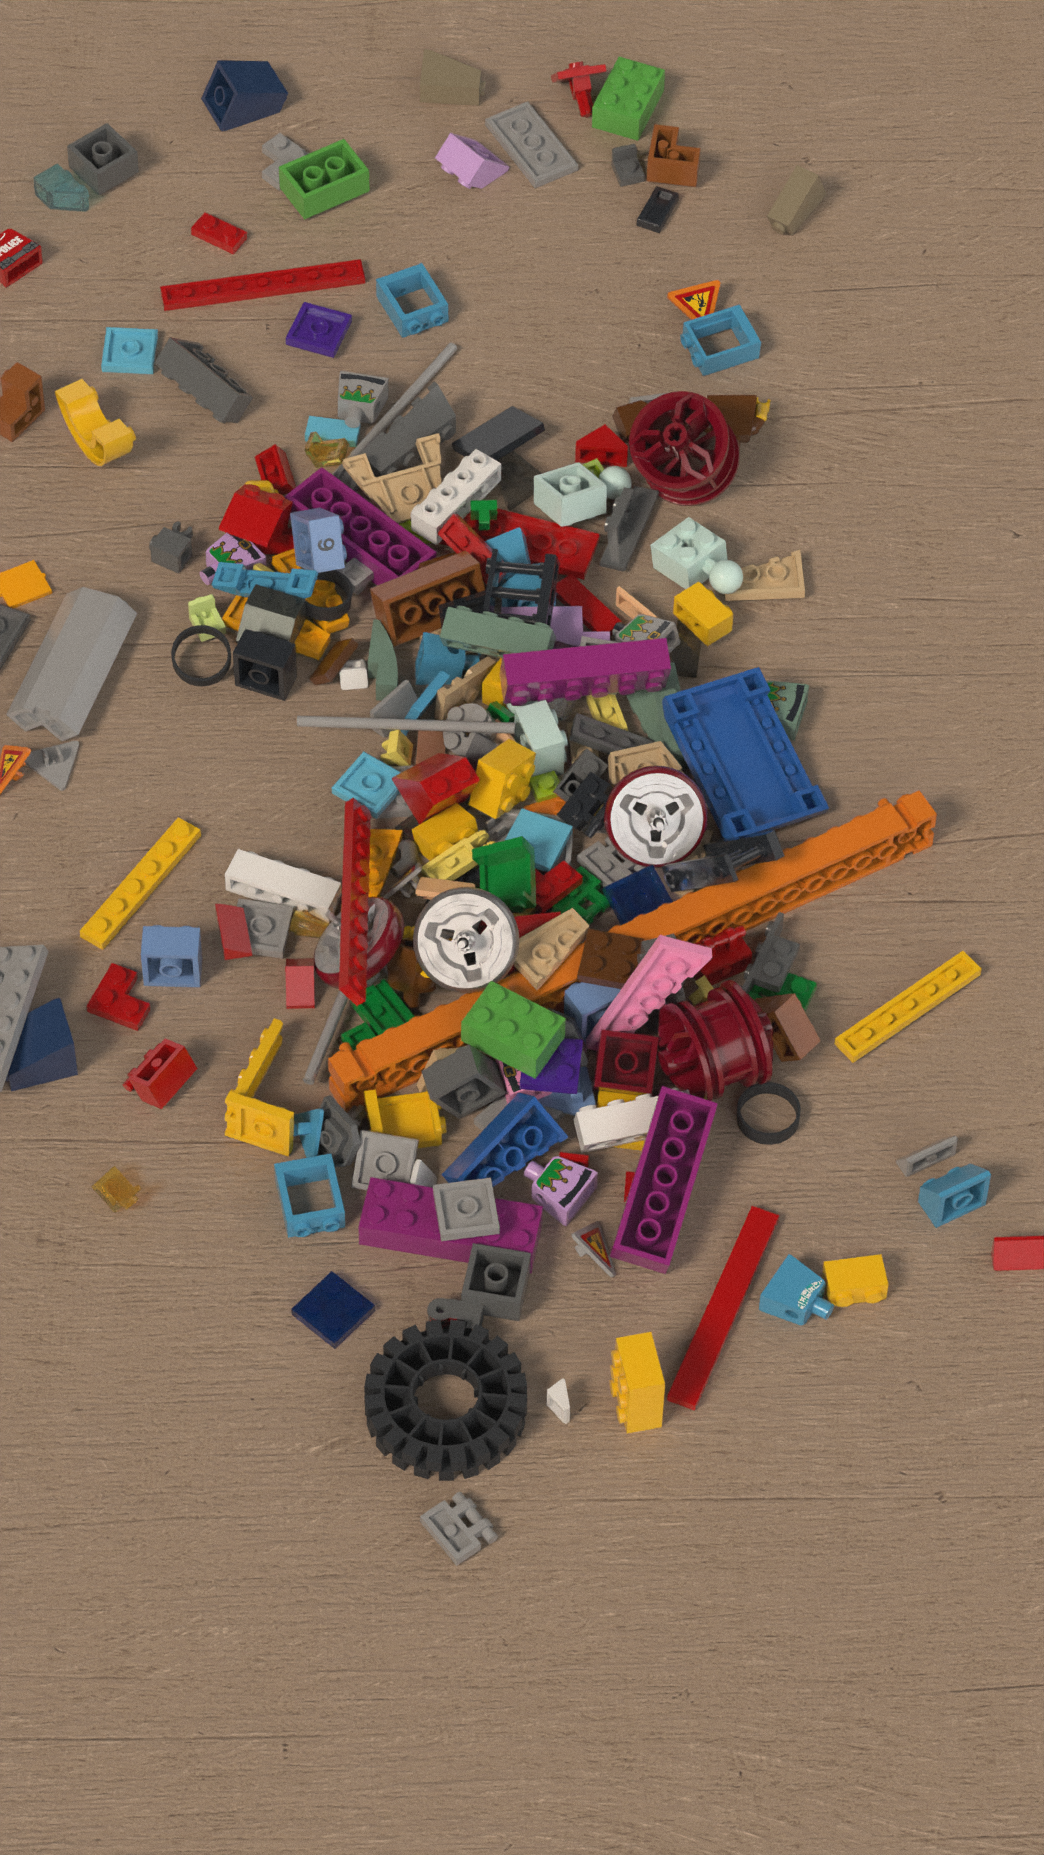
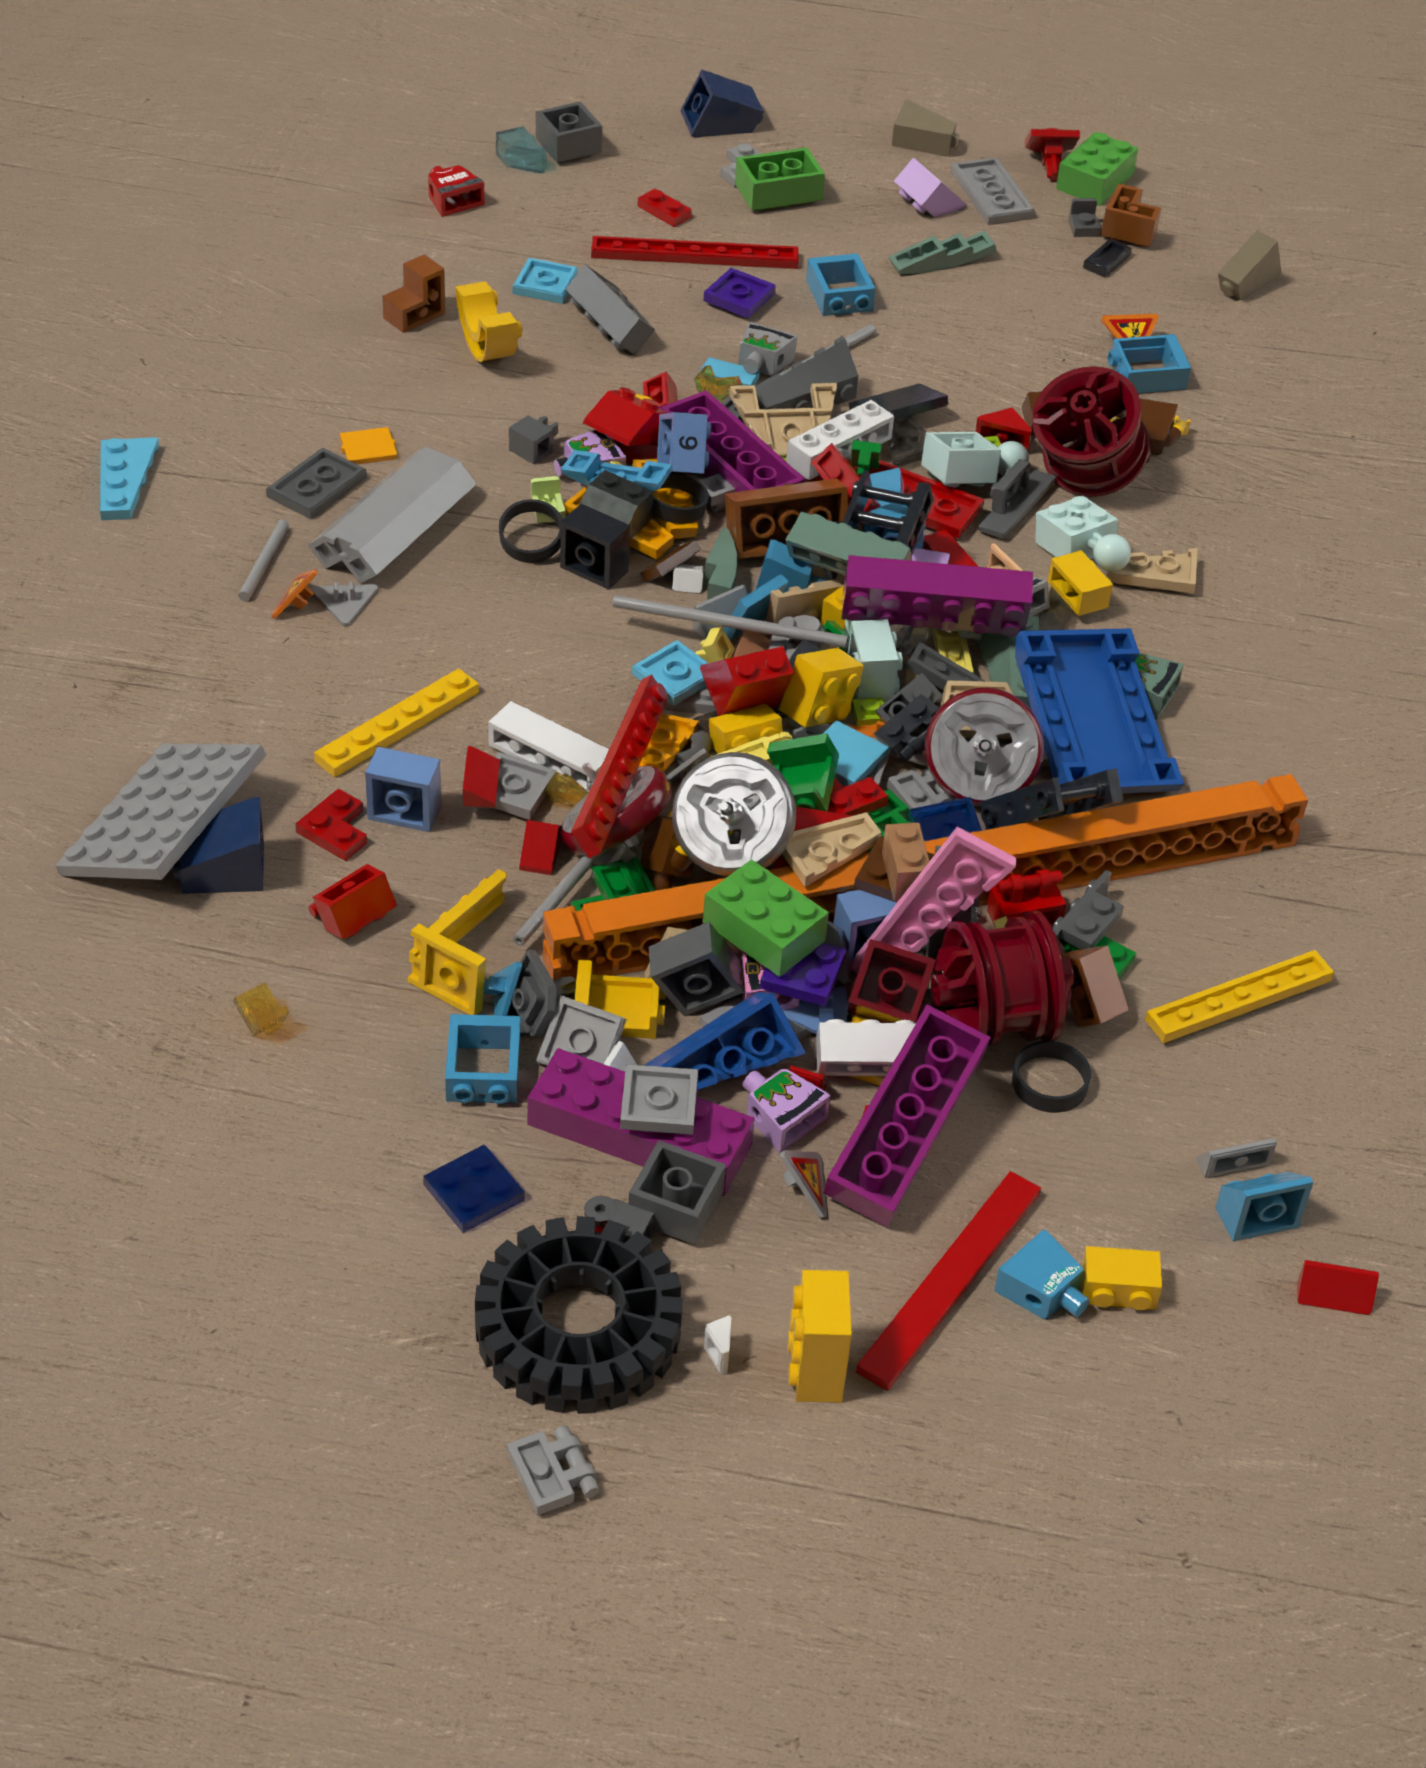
camera: 10 degrees right, 10 degrees down
(499, 240) = (939, 255): none -> sand green slope
(616, 953) = (903, 856): none -> medium nougat brick

